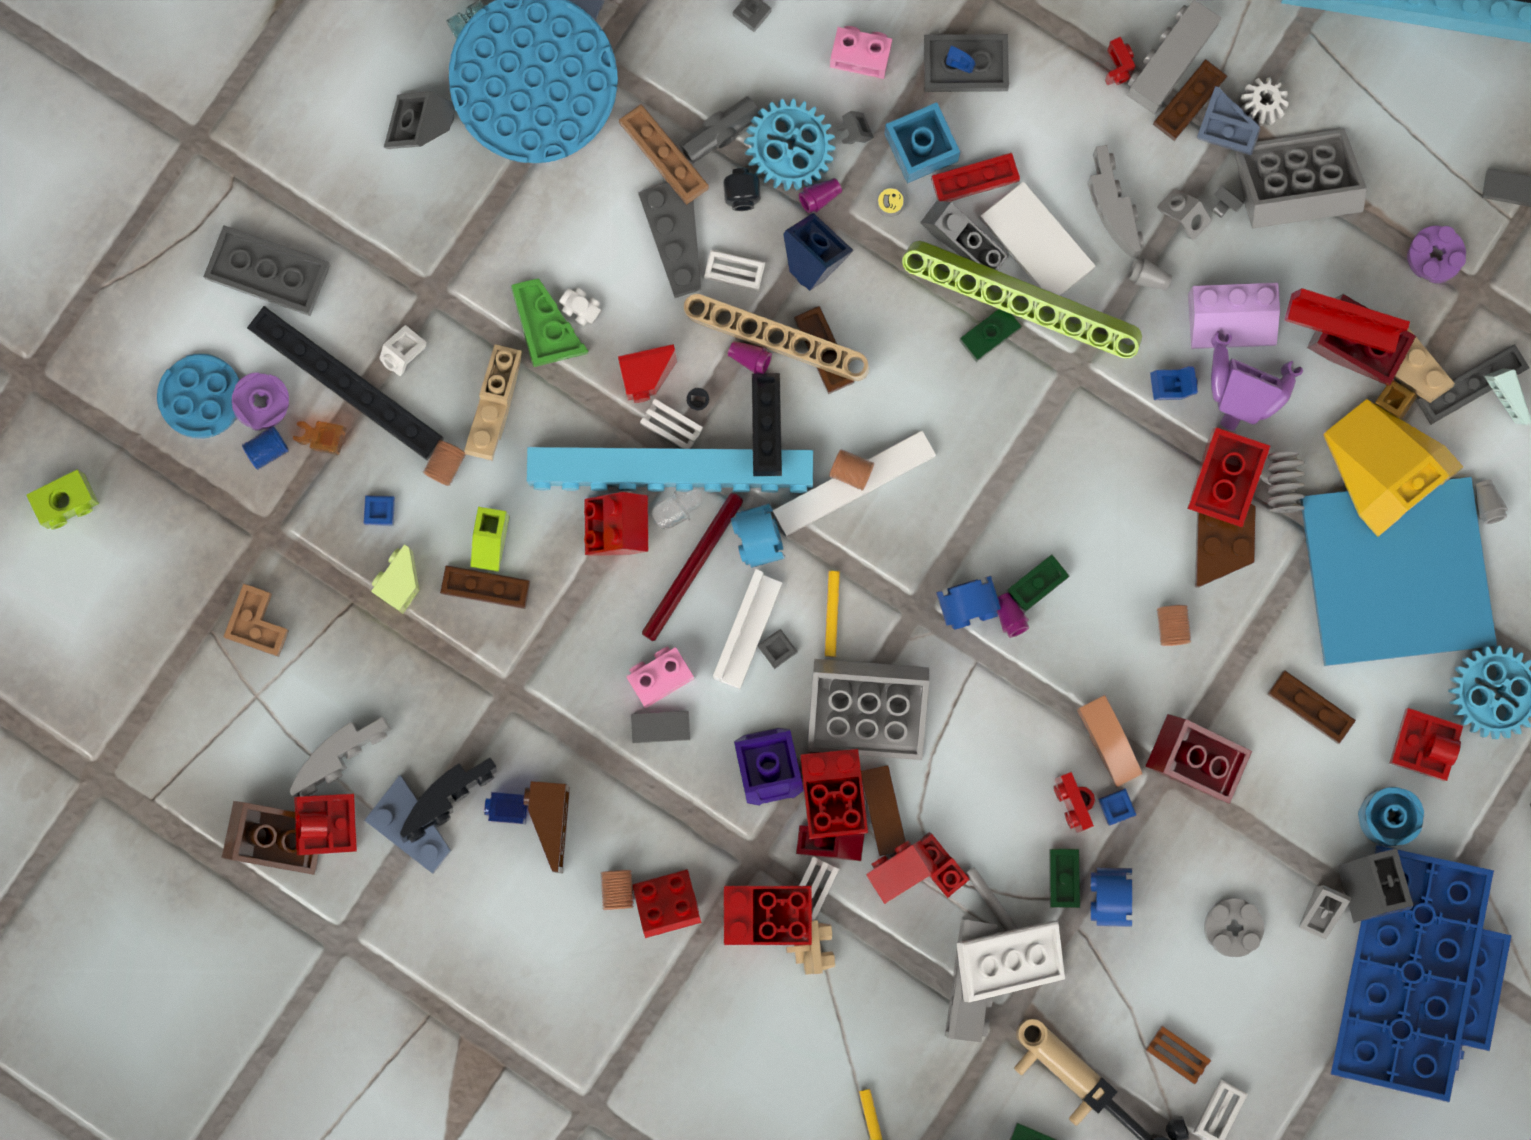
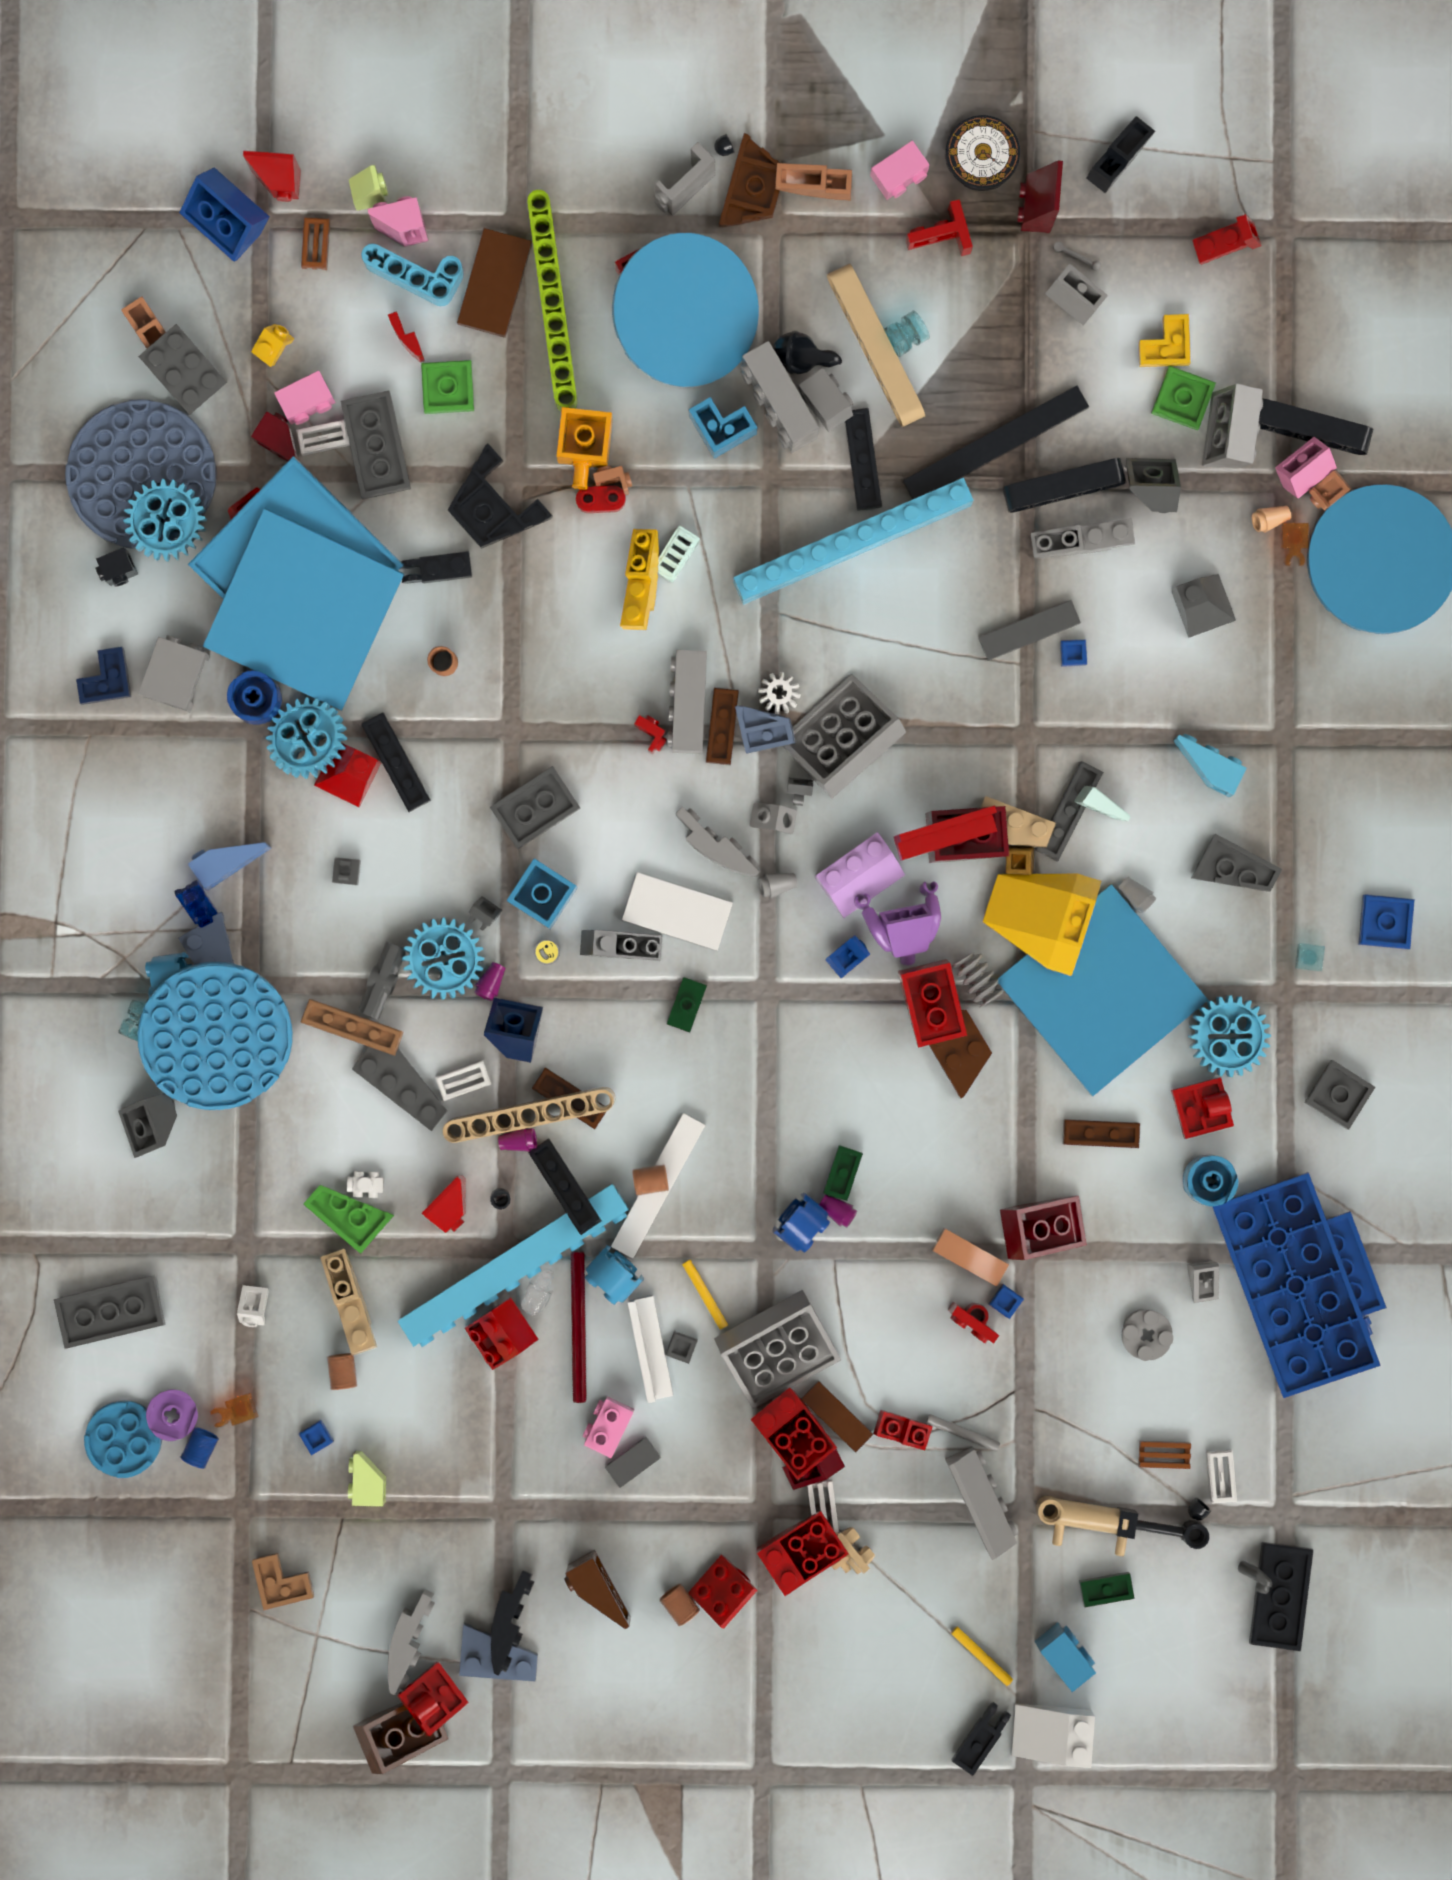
camera: 40 degrees left, 5 degrees up
(46, 499) = (62, 1598): lime brick -> none
(345, 383) = (226, 1357): black tile -> none
(485, 587) = (434, 1443): reddish brown tile -> none
(489, 538) = (413, 1407): lime slope -> none
(506, 808) = (558, 1599): clear blue brick -> none
(679, 417) = (471, 1231): white tile -> none
(741, 189) = (429, 1016): black head -> none
(768, 766) = (730, 1440): dark purple slope -> none
(861, 52) = (450, 850): bright pink brick -> none
(902, 871) = (879, 1455): brick -> none
(960, 60) = (530, 812): blue tile -> none
(975, 178) = (599, 893): red plate -> none
(1010, 961) = (1001, 1471): white tile -> none
(1036, 297) = (653, 972): lime beam -> none
(1064, 878) = (1001, 1380): dark green plate -> none
(1113, 897) = (1045, 1373): blue brick -> none
(1174, 625) = (963, 1139): nougat piece -> none
(1375, 885) = (1230, 1241): dark grey slope -> none
(1430, 268) = (980, 713): medium lavender plate -> none

